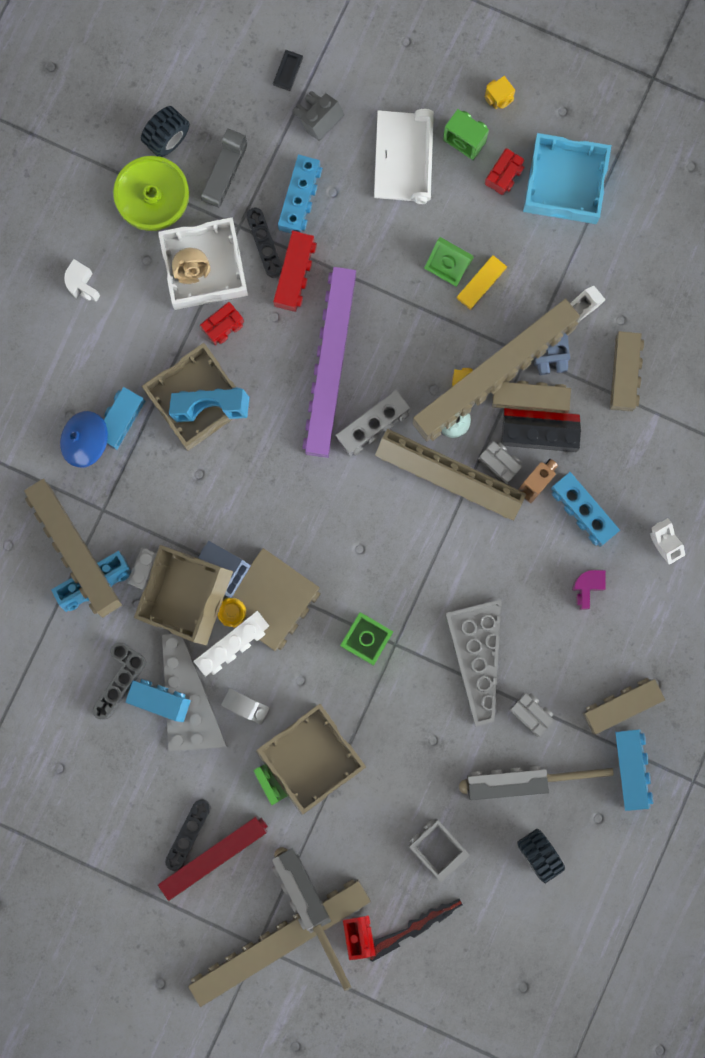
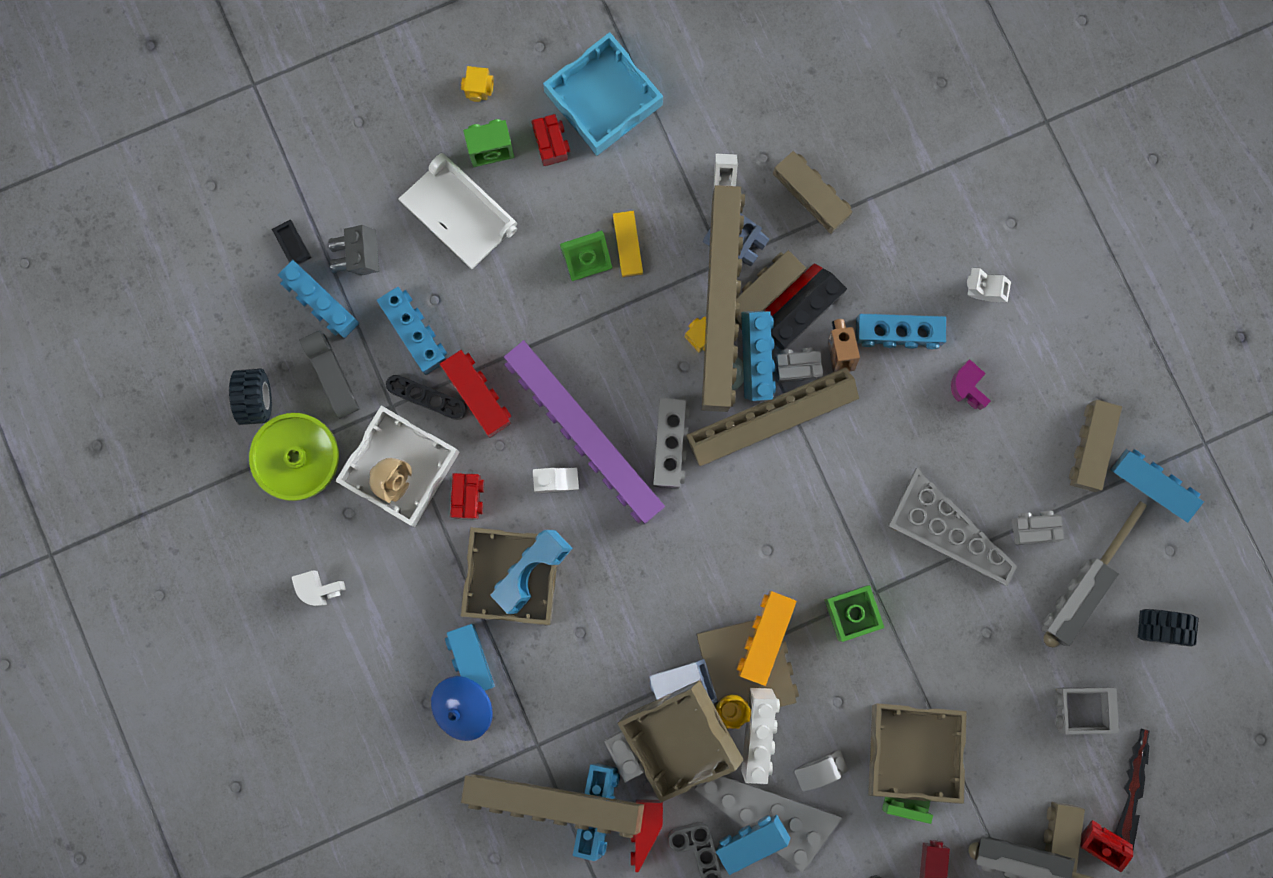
camera: 55 degrees left, 0 degrees up
(112, 624) = (651, 825): none -> red slope
(266, 119) = (319, 299): none -> dark azure brick
(283, 371) = (555, 479): none -> white arch
(298, 594) = (767, 637): none -> light orange brick
(484, 425) = (758, 355): none -> dark azure brick

